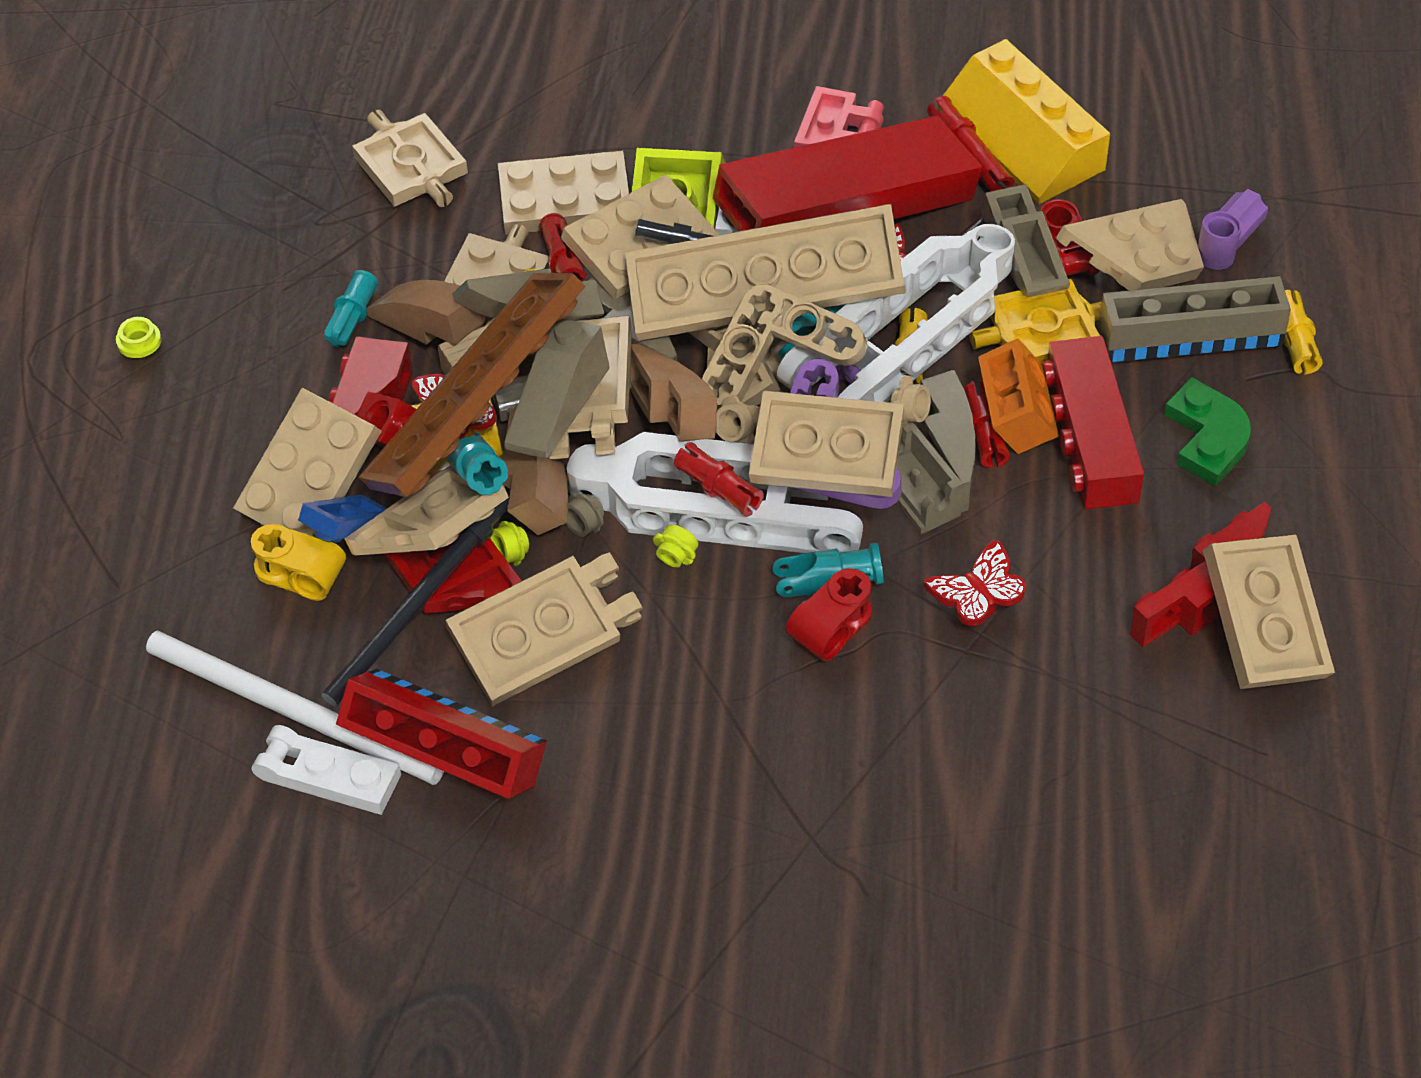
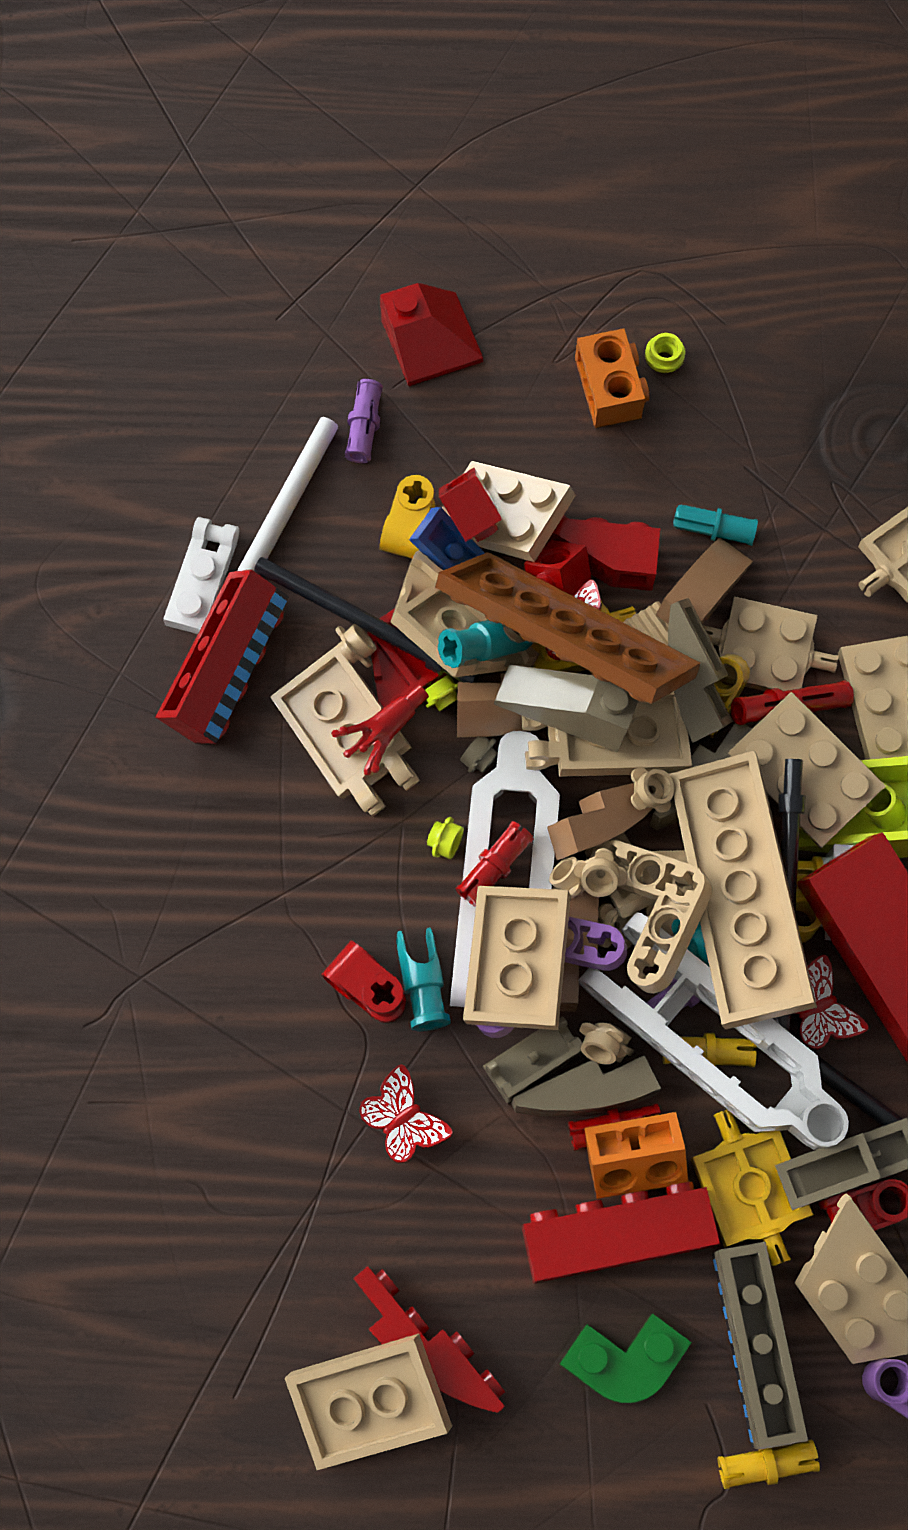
camera: 85 degrees right, 20 degrees up
(62, 546) = (428, 332): none -> red slope
(159, 606) = (363, 421): none -> medium lavender pin
(160, 381) = (604, 378): none -> orange brick
(303, 472) = (470, 506): none -> red arch
(447, 602) = (356, 644): none -> tan plate
(556, 568) = (383, 727): none -> red piece
(651, 345) = (661, 785): none -> tan plate
(743, 379) = (597, 884): none -> tan plate

